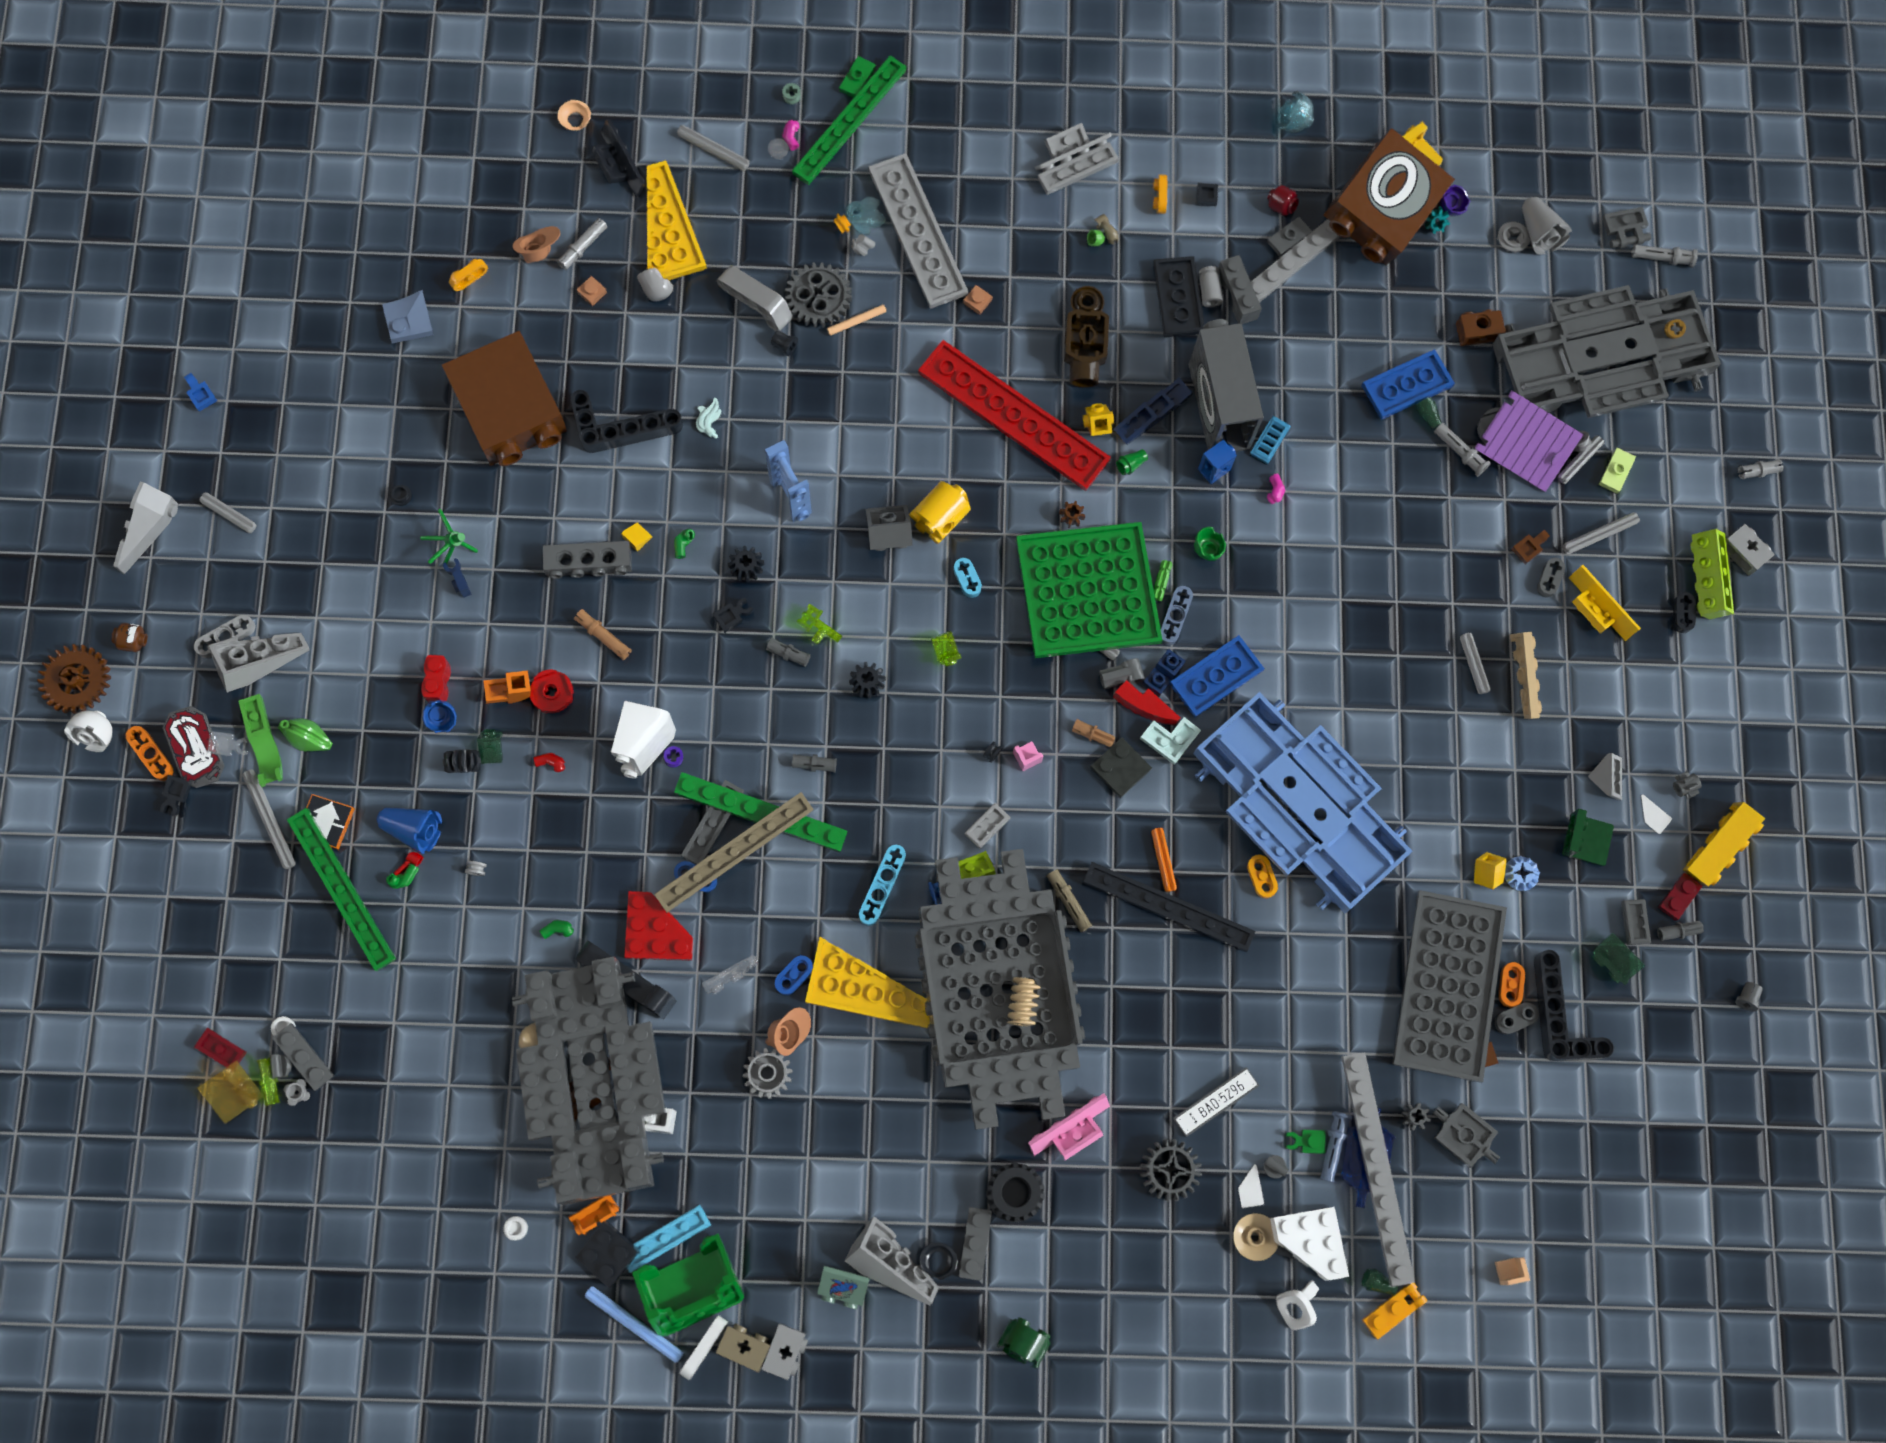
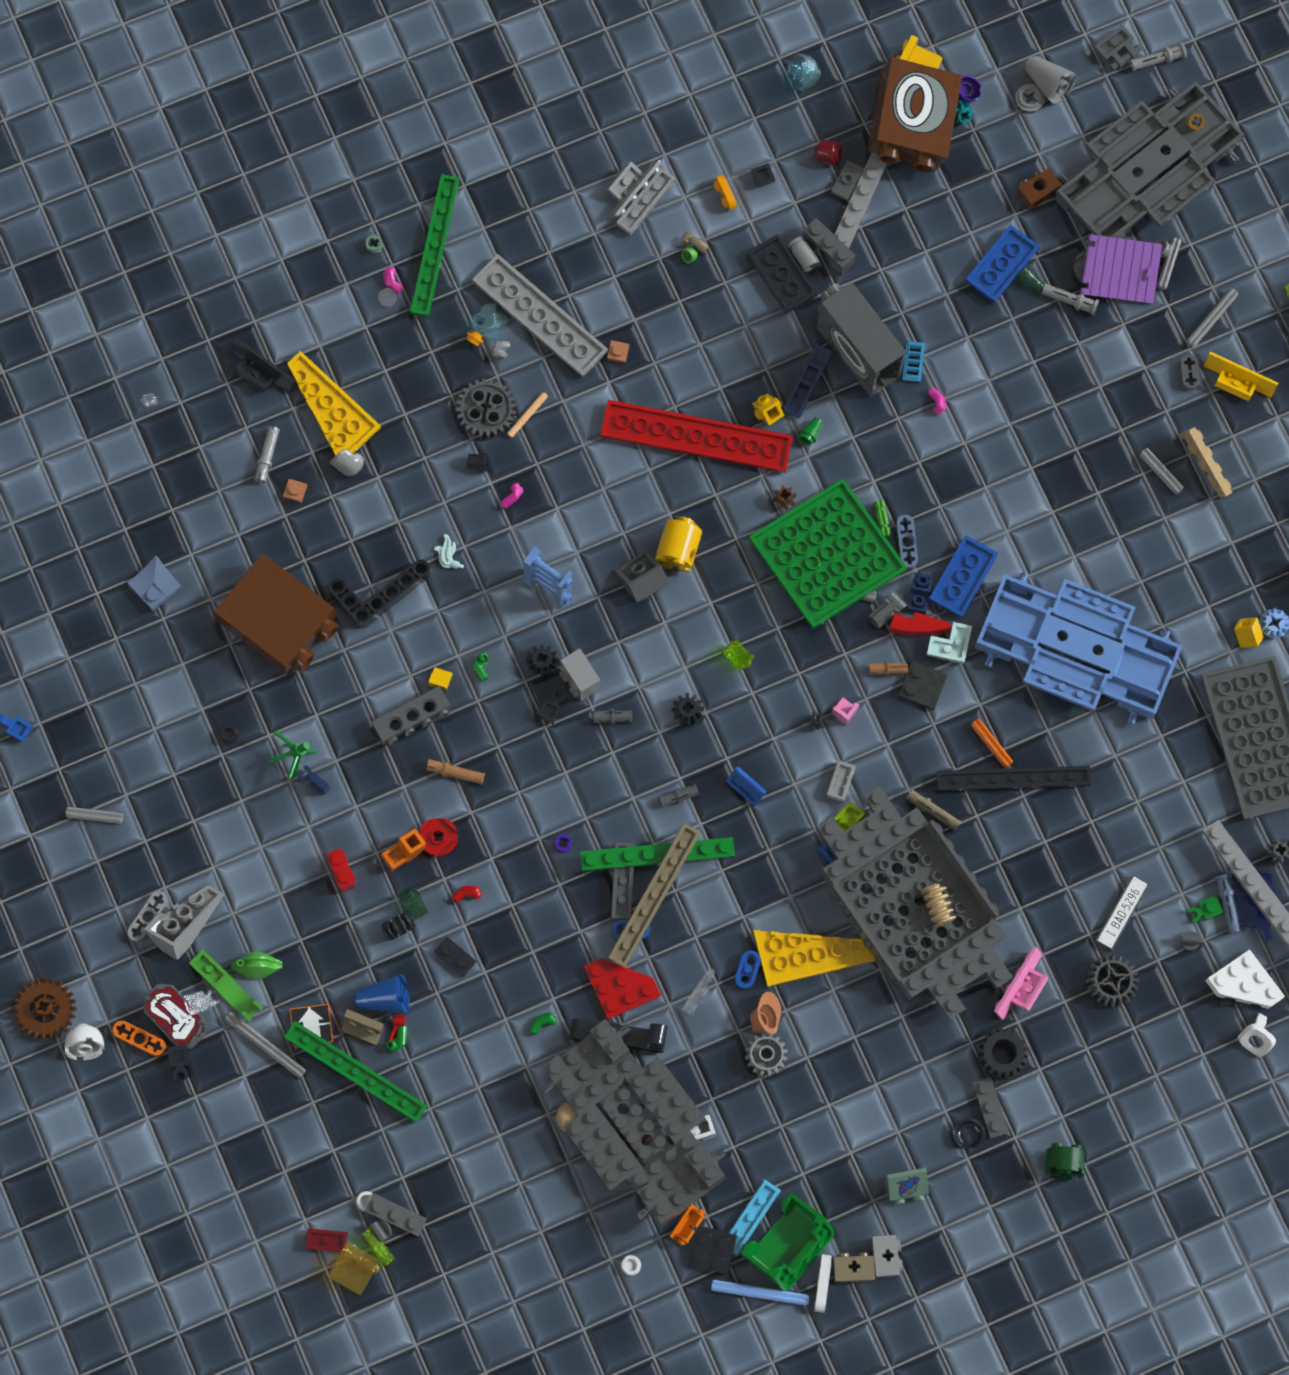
camera: 25 degrees left, 0 degrees up
(129, 637) = (72, 953): reddish brown head -> none
(149, 518) = (35, 844): light grey wedge -> none
(290, 1090) = (398, 1245): light grey plate -> none
(372, 847) = (362, 1027): none -> dark tan bracket
(439, 716) = (360, 898): blue hair -> none
(462, 278) = (182, 530): light orange plate -> none
(475, 868) = (453, 1005): light grey bush -> none
(497, 142) = (149, 400): none -> clear plate
(505, 820) = (455, 956): none -> black plate
(537, 244) = (230, 472): nougat piece -> none
(570, 107) = (198, 338): light nougat piece -> none
(641, 737) = (537, 838): white windscreen -> none
(713, 147) = (332, 321): light grey axle -> none
(756, 296) = (436, 433): light grey beam -> none
(774, 591) = (579, 674): none -> light grey brick
(799, 392) = (513, 497): none -> dark pink arm
(822, 627) = (622, 681): clear neon green arm -> none
(857, 77) = (421, 205): green plate -> none
(879, 883) = (781, 867): medium azure beam -> none
(885, 1261) = (920, 1151): light grey wedge -> none
(887, 785) = (746, 786): none -> blue plate
(971, 575) = (727, 585): medium azure beam -> none
(1086, 337) = (724, 344): dark brown brick -> none
(1209, 544) = (906, 471): green hair -> none
(1217, 461) = (881, 400): blue brick -> none
(1242, 1234) = (1201, 990): tan dish -> none
(1250, 1189) = (1179, 967): white sticker -> none
(1261, 877) = (1077, 718): light orange plate -> none
(1529, 548) = (1161, 355): reddish brown plate -> none
(1617, 470) = (1201, 259): yellowish green plate -> none

